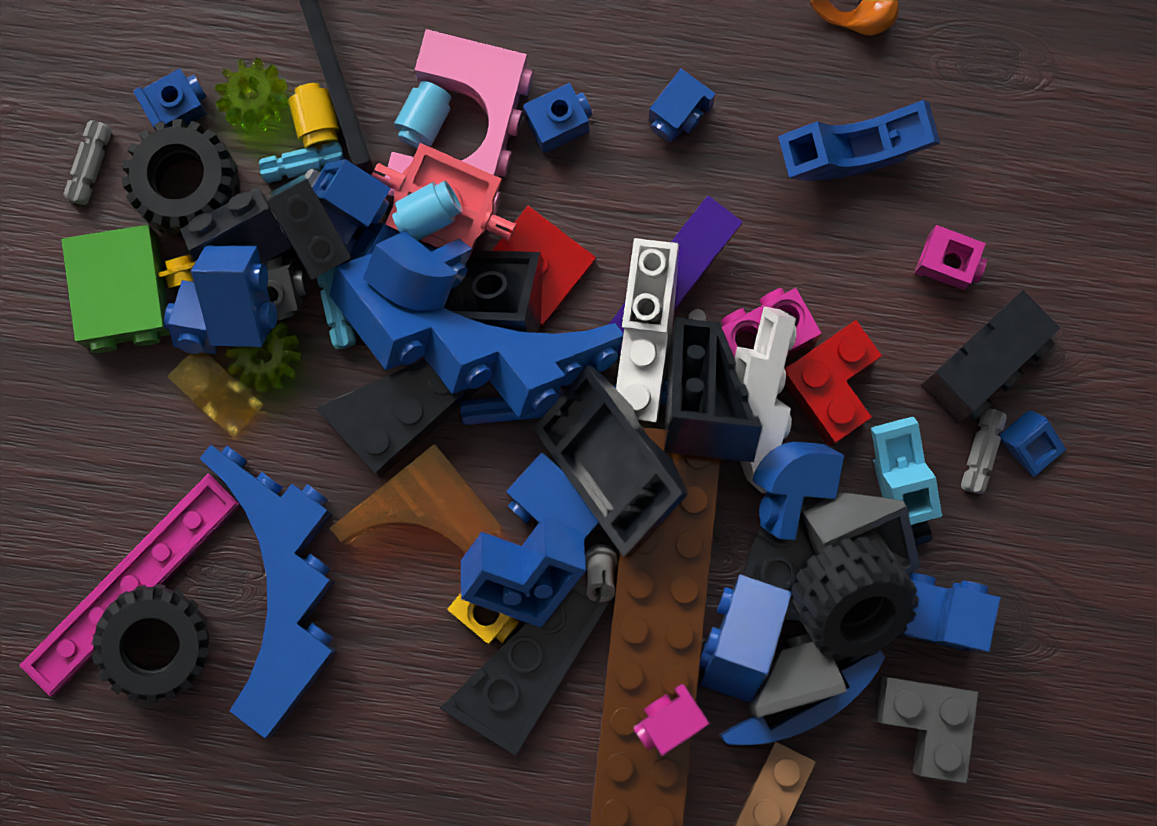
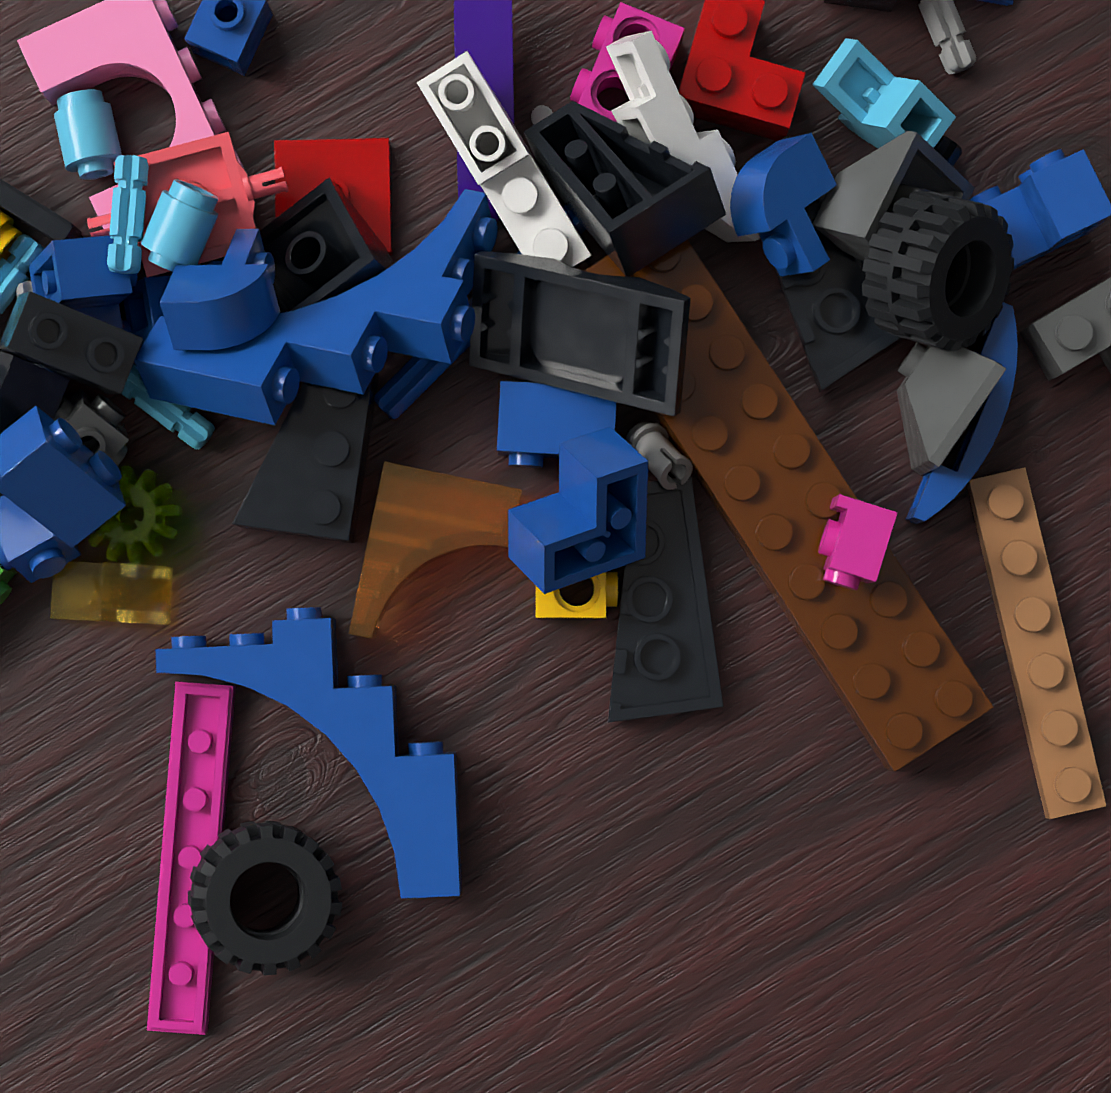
camera: 40 degrees left, 5 degrees up
(402, 179) = (127, 214): none -> medium azure axle
(743, 647) = (865, 408): brick -> none

